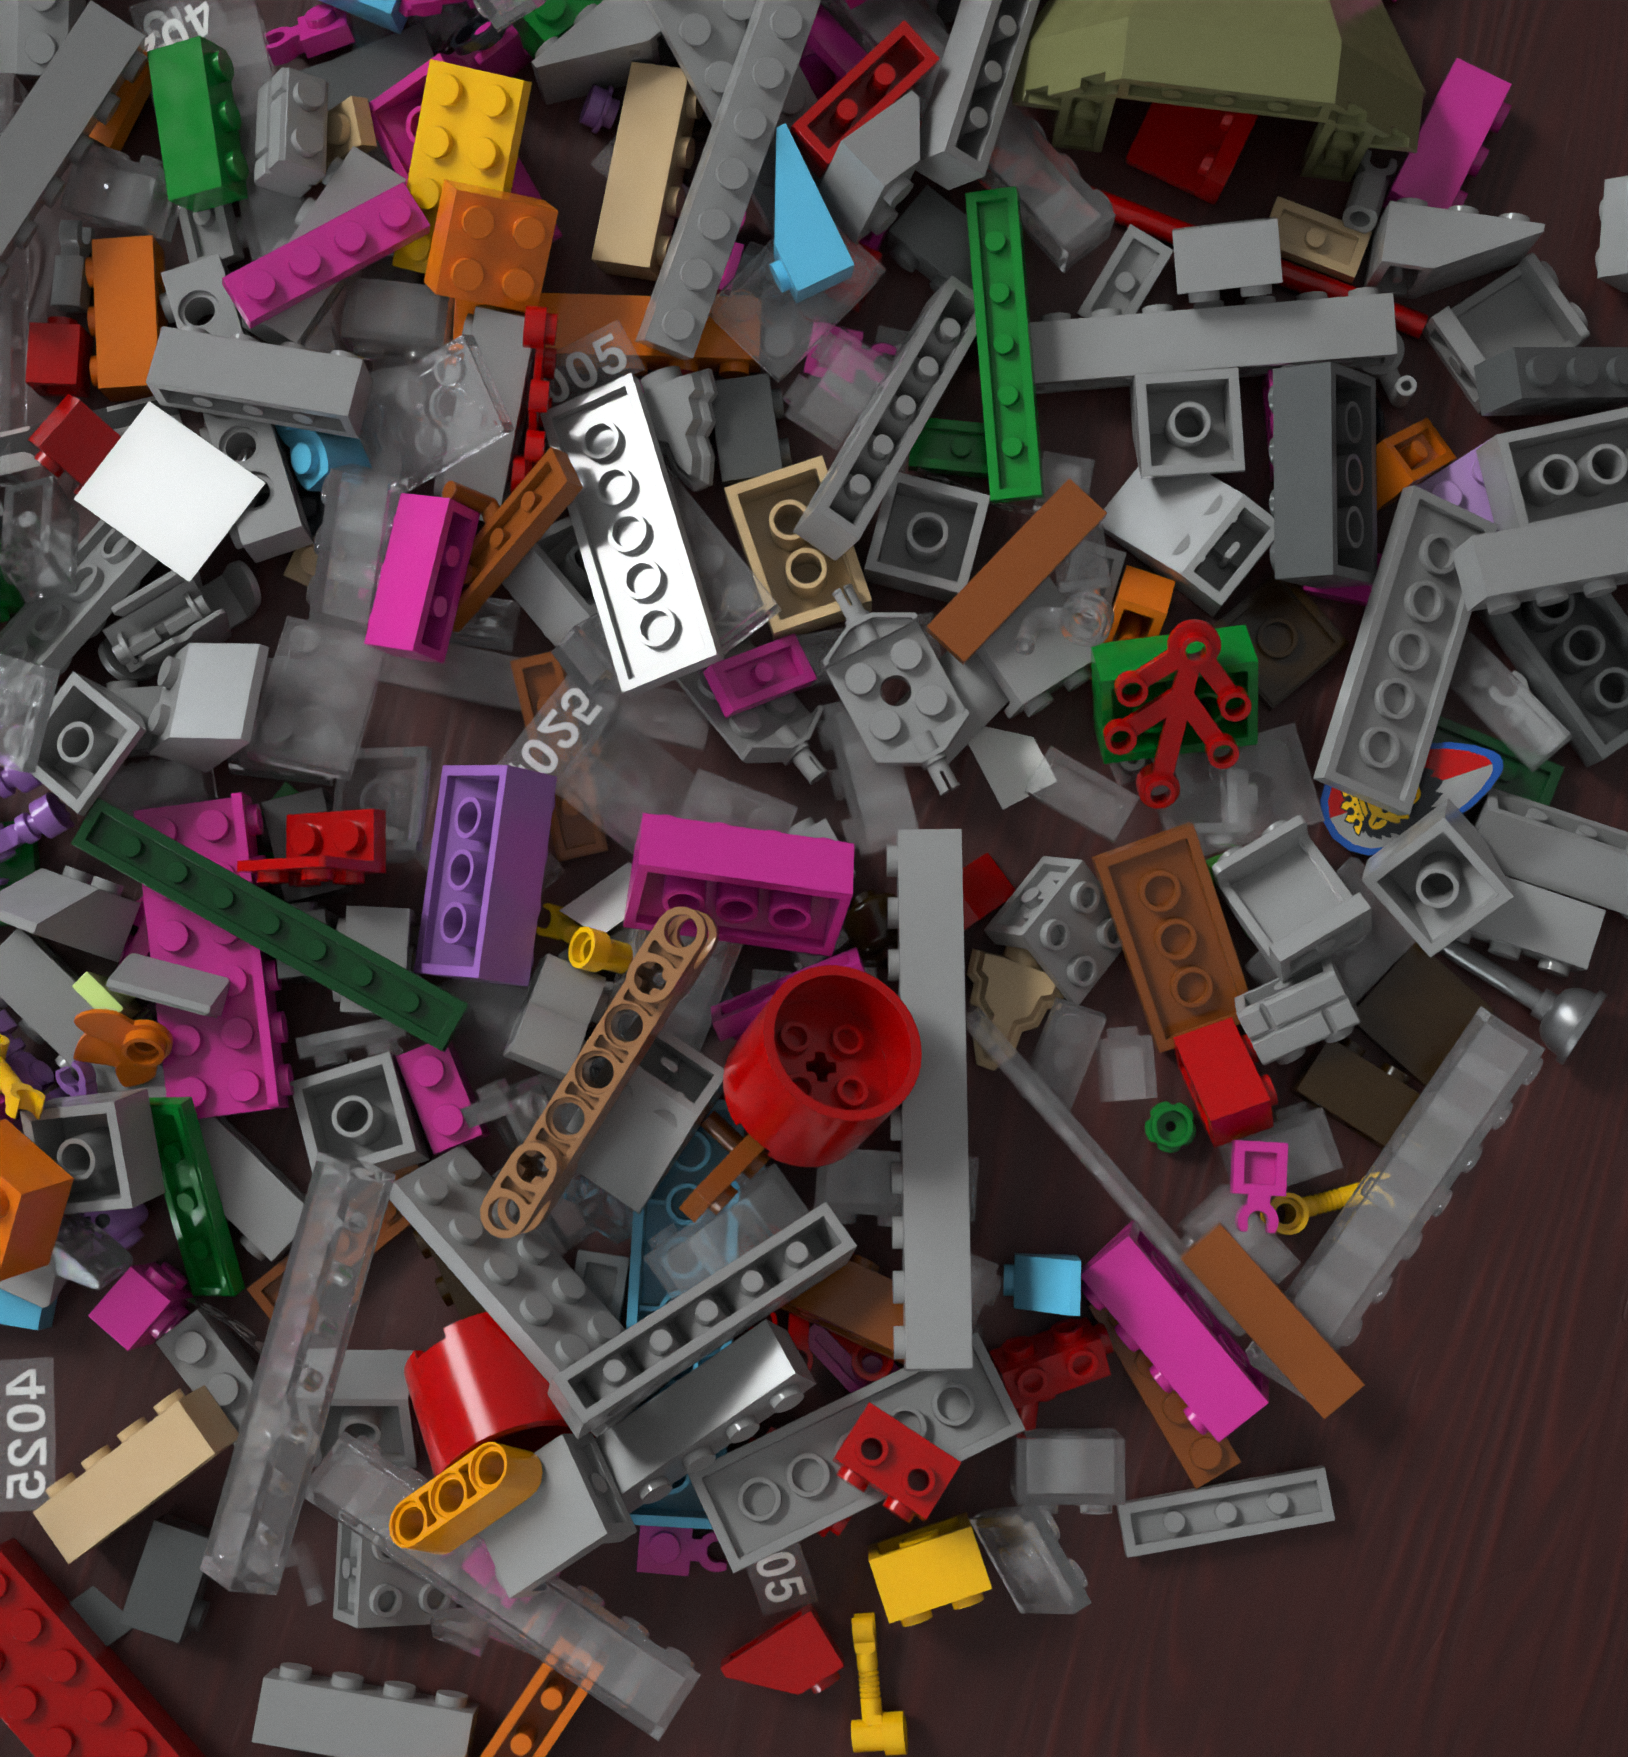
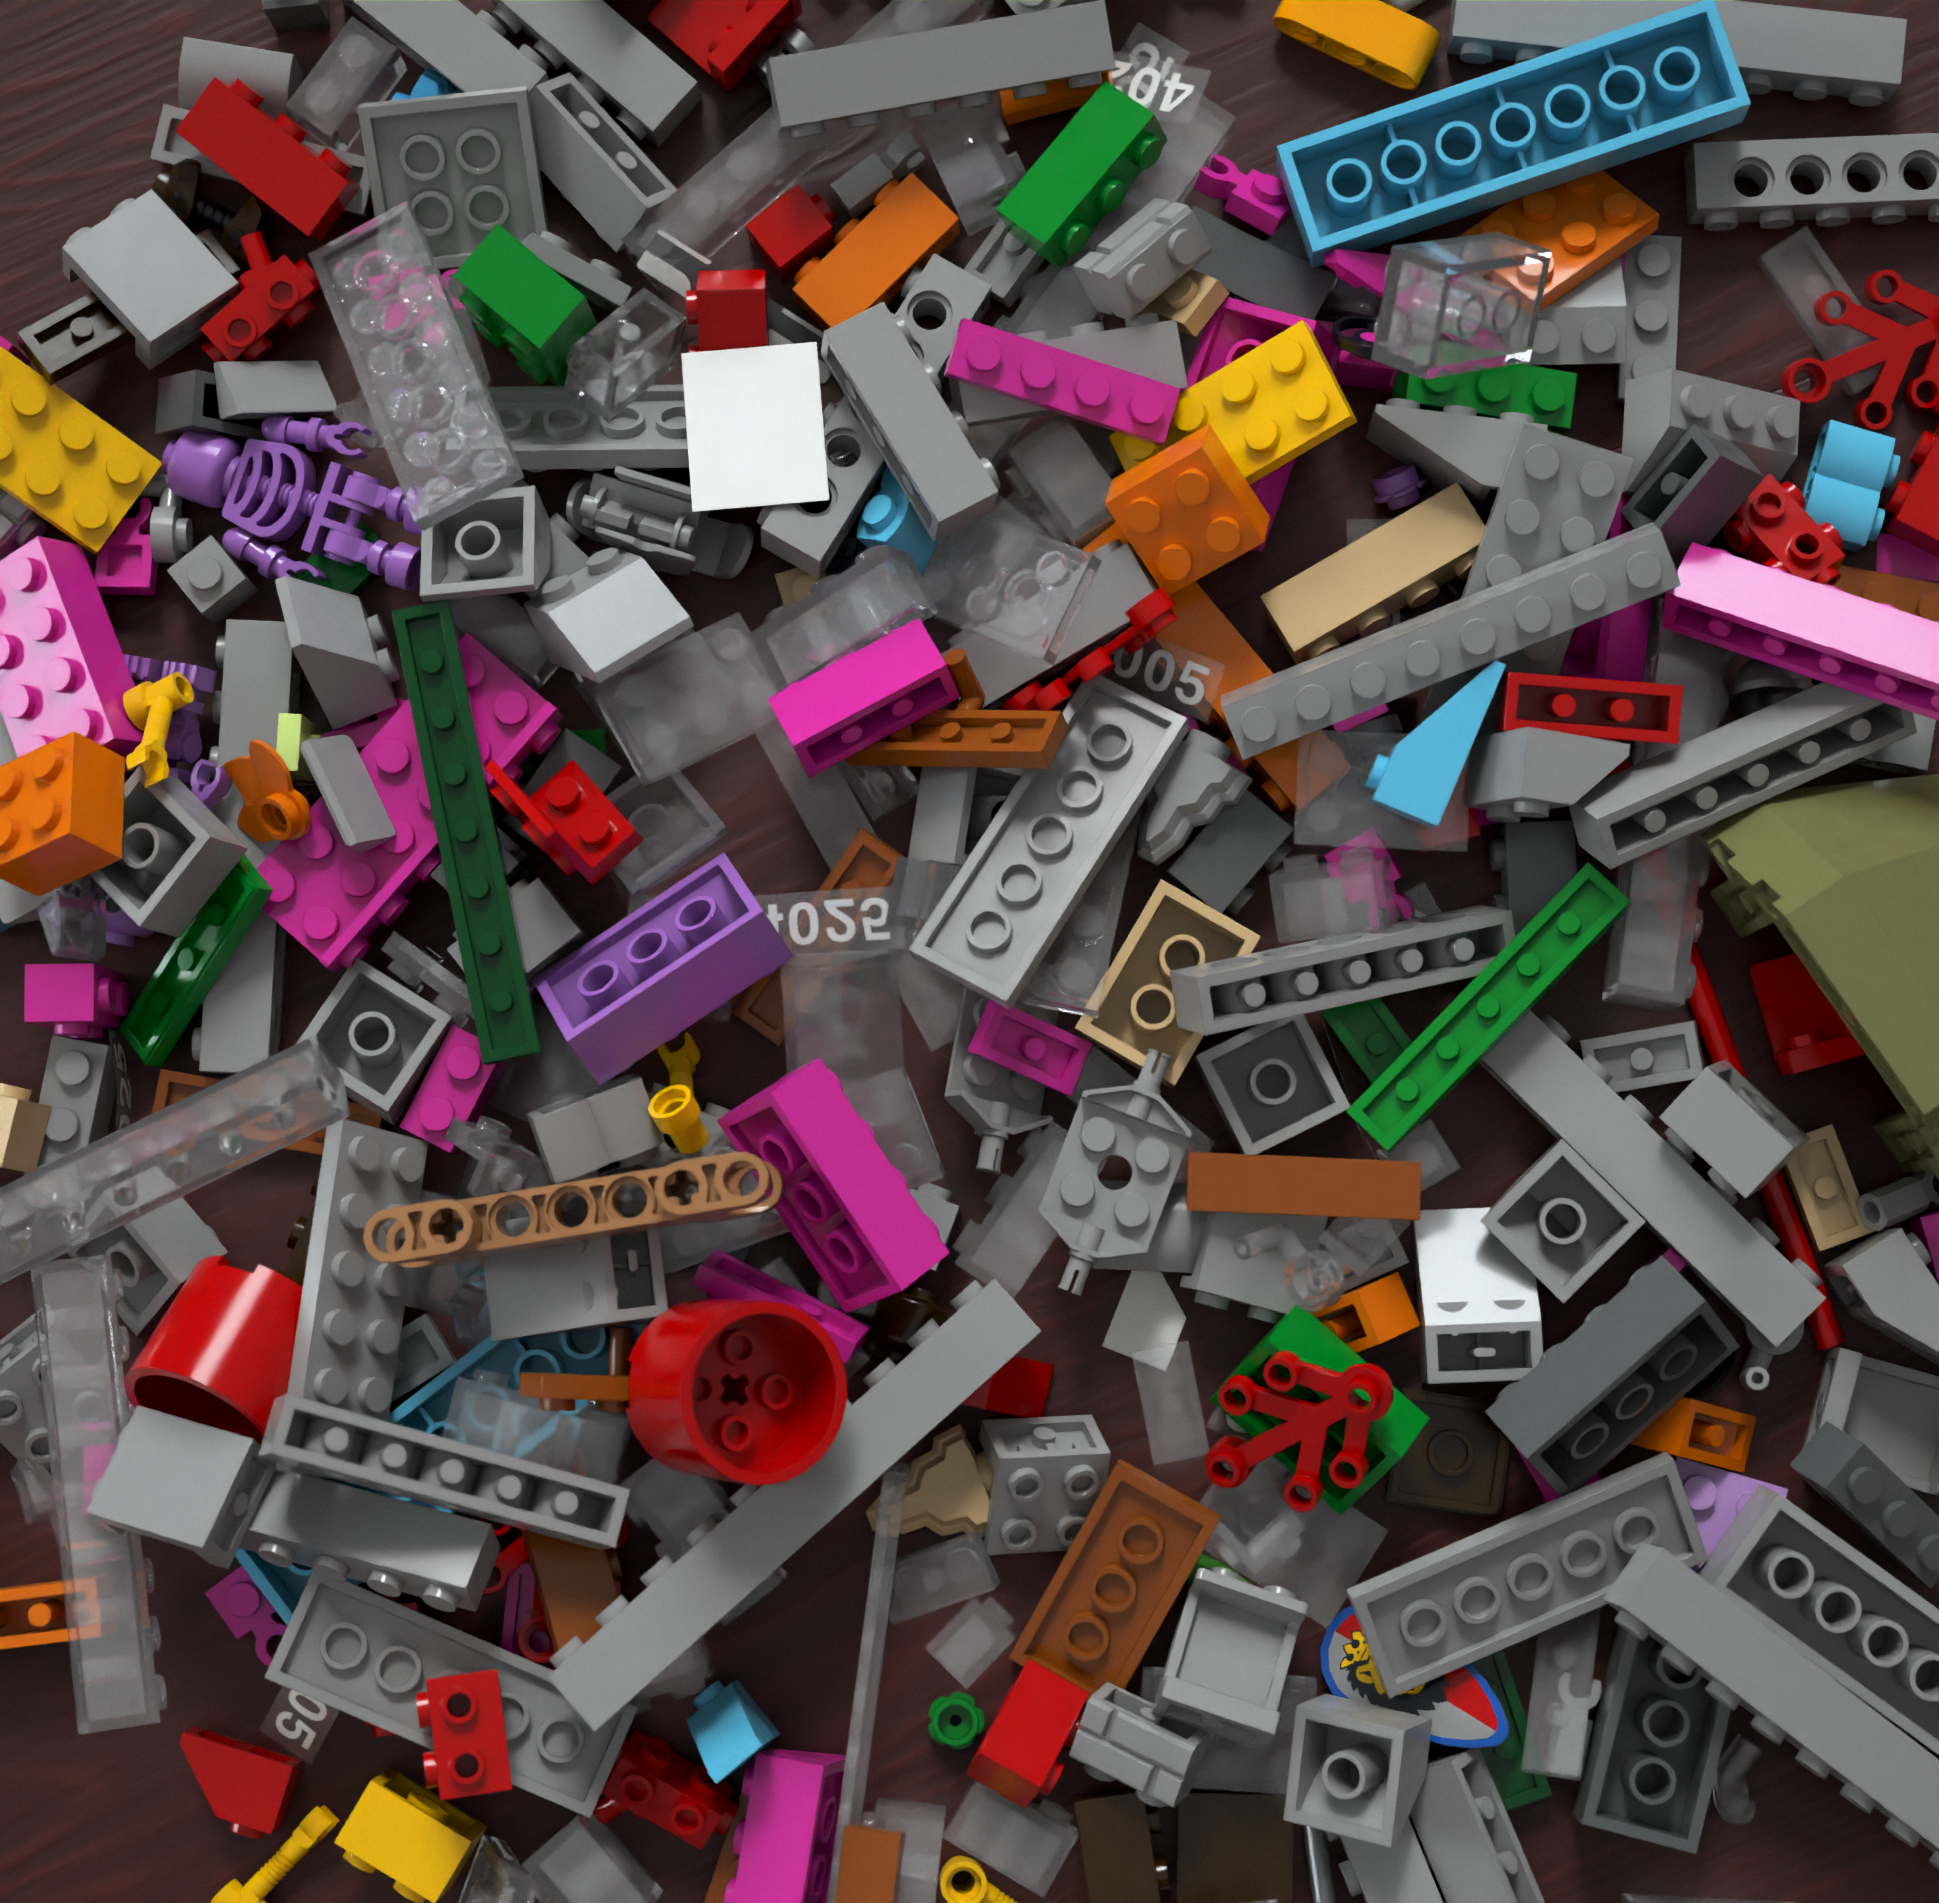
camera: 55 degrees right, 0 degrees up
(465, 1498) = (135, 1405): light orange beam -> none
(604, 903) = (727, 1083): white sticker -> none
(1259, 1173) = (972, 1830): dark pink plate -> none

